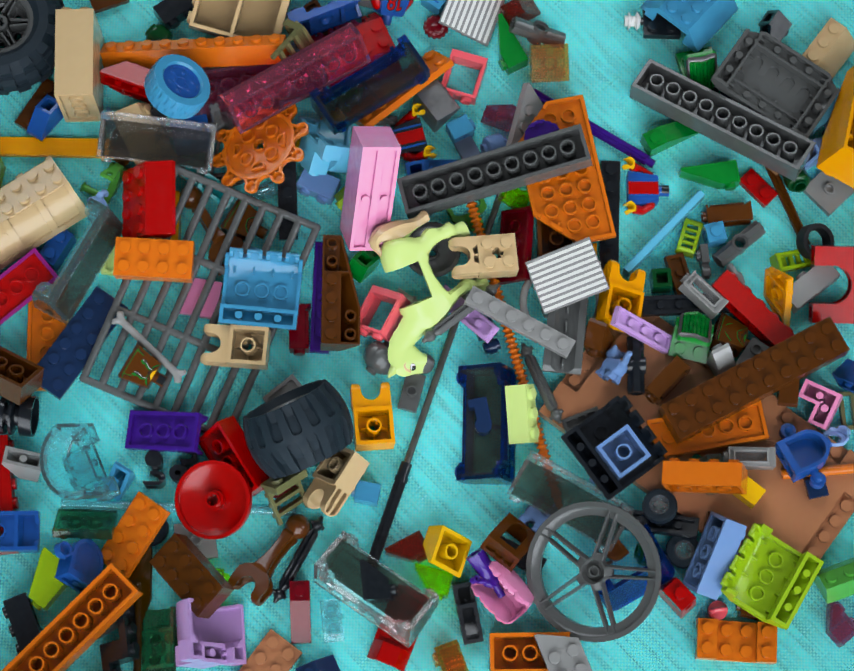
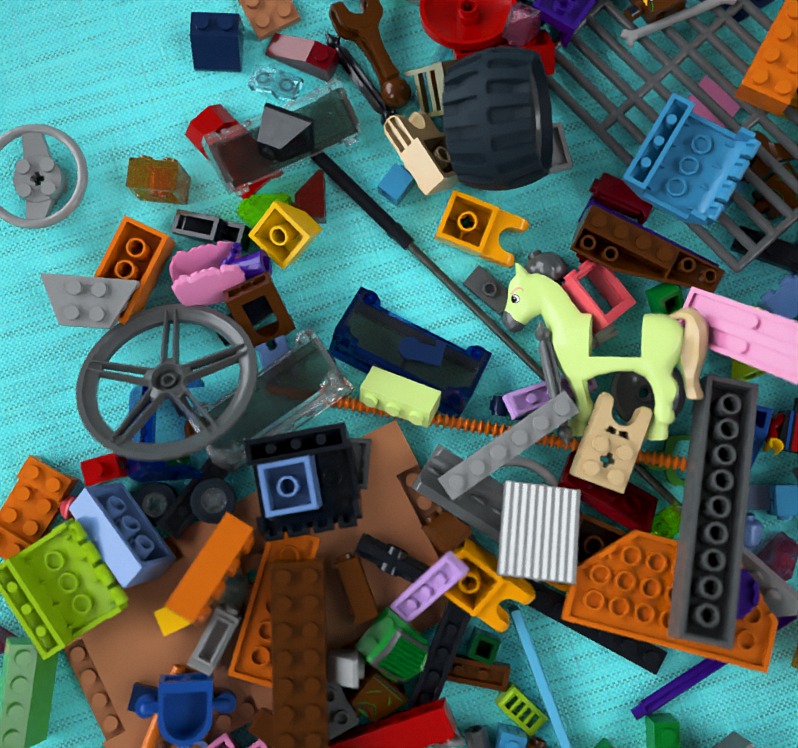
camera: 120 degrees right, 10 degrees up
(215, 449) = (522, 24): none -> clear pink slope
(233, 344) = (631, 112): tan brick -> none
(541, 383) = (425, 439): dark grey wheel -> none
(612, 366) = (400, 530): medium blue animal -> none
(642, 188) = (609, 684): torso -> none
(702, 257) = (486, 713): dark grey plate -> none
(702, 294) = (439, 688): light grey window -> none

